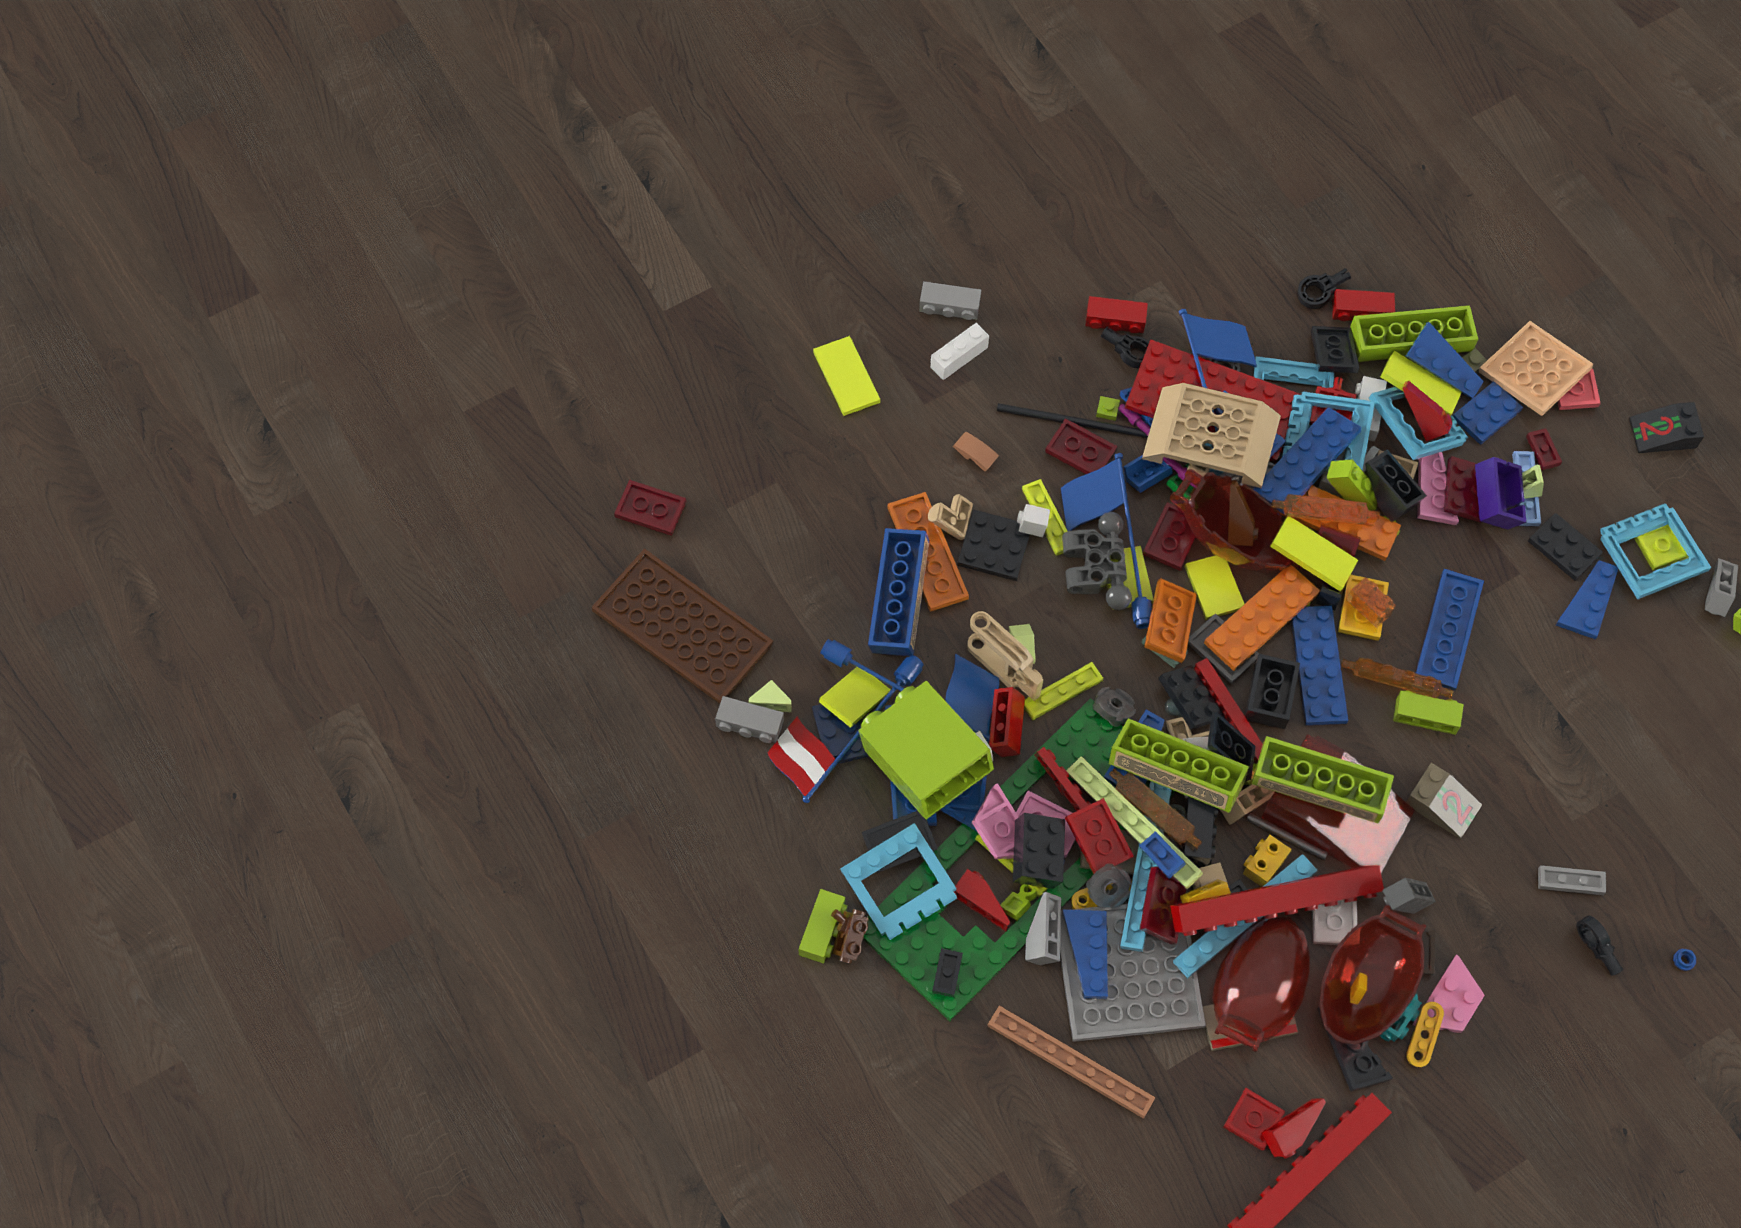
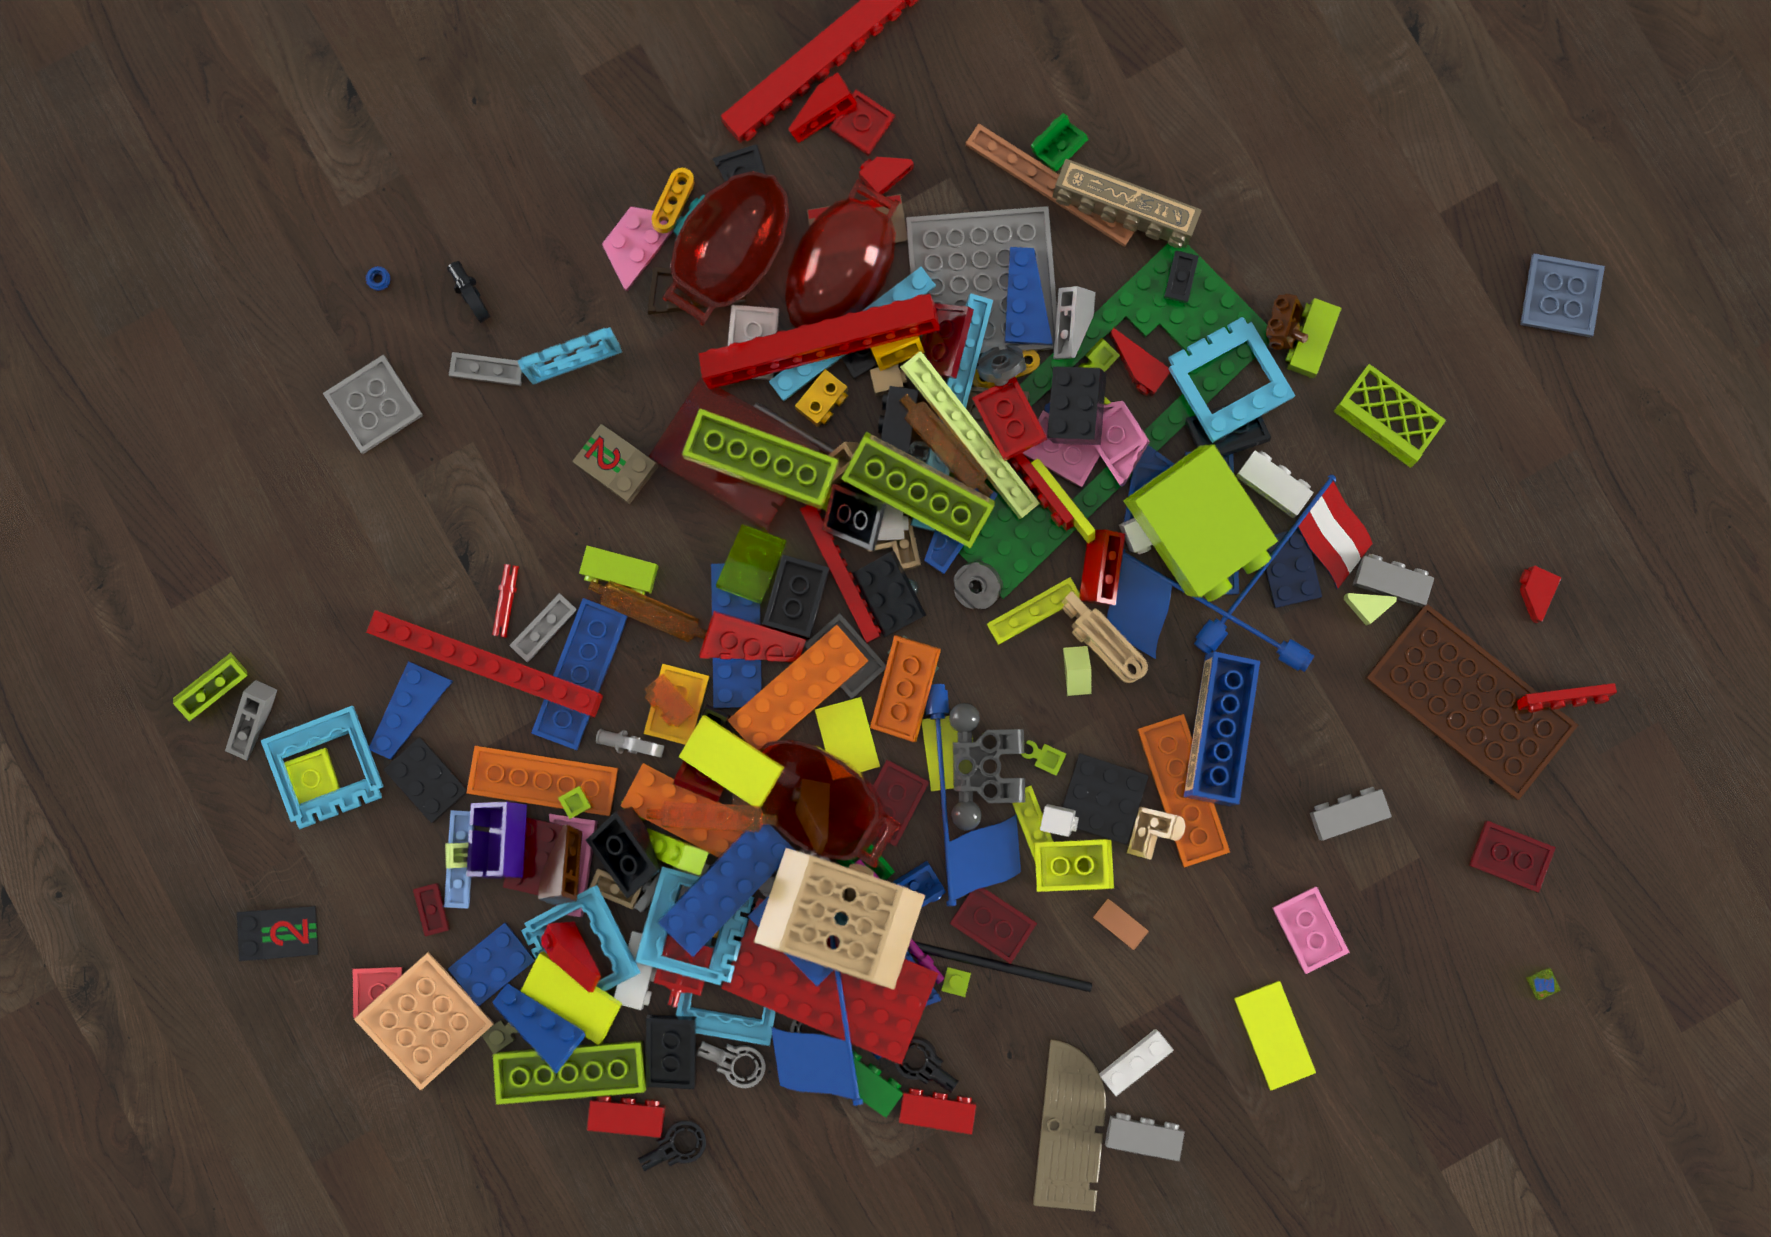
camera: 175 degrees left, 20 degrees up
(591, 972) = (1562, 295): none -> sand blue plate
(595, 626) = (1558, 699): none -> red plate
(621, 716) = (1537, 591): none -> red slope
(626, 416) = (1543, 983): none -> clear neon green tile
(759, 844) = (1382, 433): none -> lime fence
(786, 535) = (1350, 813): none -> light grey brick
(819, 450) = (1310, 930): none -> bright pink plate
(854, 696) = (1275, 603): neon yellow tile -> none
(855, 798) = (1275, 483): none -> white brick
(1003, 1031) = (1126, 204): none -> brick
(1010, 304) = (1068, 1140): none -> dark tan door
(1013, 487) = (1074, 865): none -> neon yellow slope
(1044, 572) = (1048, 758): none -> lime plate
(1045, 773) = (1080, 521): none -> neon yellow tile
(1066, 1100) = (1058, 143): none -> green bracket
(1162, 854) = (944, 385): blue plate -> none
(1168, 330) = (875, 1089): none -> green brick
(1230, 1067) = (884, 172): none -> red slope
(1288, 348) = (719, 1055): none -> light grey pin
(1313, 713) = (751, 564): none -> clear neon green tile
(1317, 653) = (743, 639): none -> red wing
(1358, 988) = (740, 244): yellow tile -> none
(1398, 572) = (621, 741): none -> light grey pin
(1408, 896) = (673, 341): dark grey brick -> none
(1439, 525) = (574, 802): none -> lime plate
(1443, 472) = (561, 870): none -> reddish brown slope
(1468, 546) = (539, 779): none -> orange plate
(1473, 891) = (562, 364): none -> medium azure hinge
(1486, 665) = (543, 627): none -> light grey plate
(1522, 692) = (505, 600): none -> red pin
(1533, 630) = (485, 663): none -> red brick
(1668, 847) = (372, 404): none -> light grey plate

